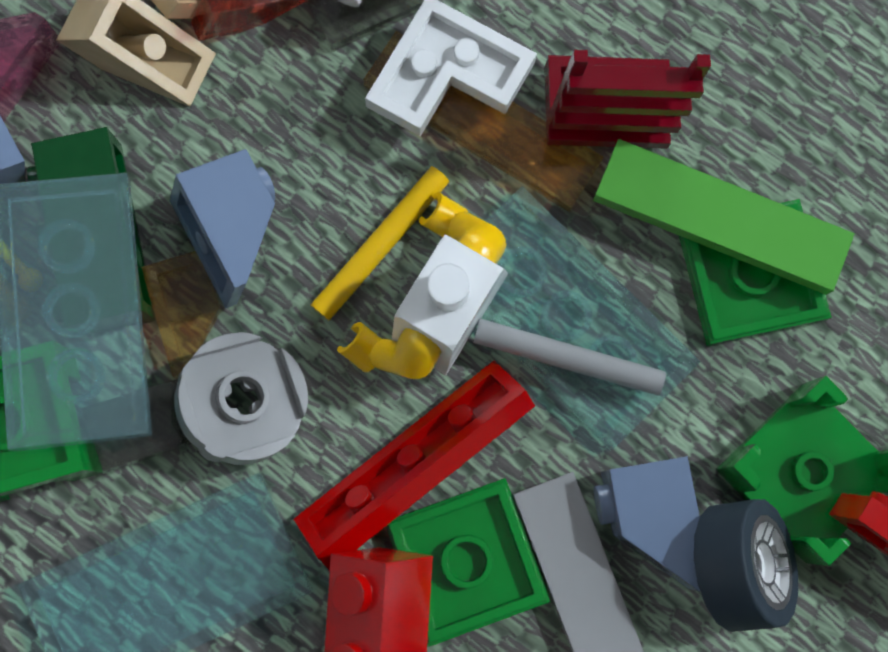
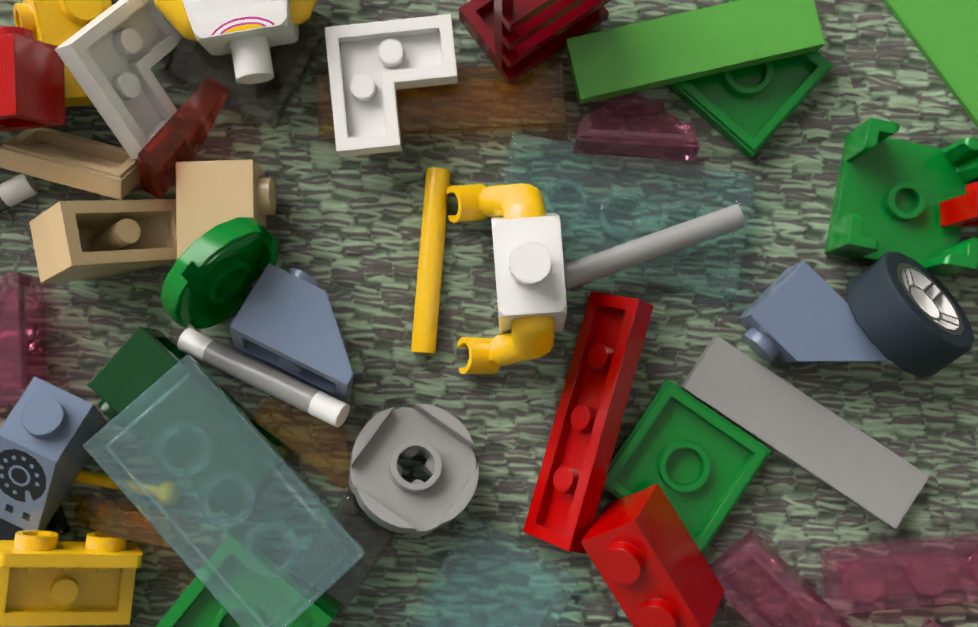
camera: 30 degrees left, 5 degrees up
(175, 240) = (264, 377): none -> light grey bar
(199, 126) = (216, 270): none -> green tile
(233, 88) = (217, 193): none -> tan slope
(626, 253) = (635, 129): none -> clear pink tile

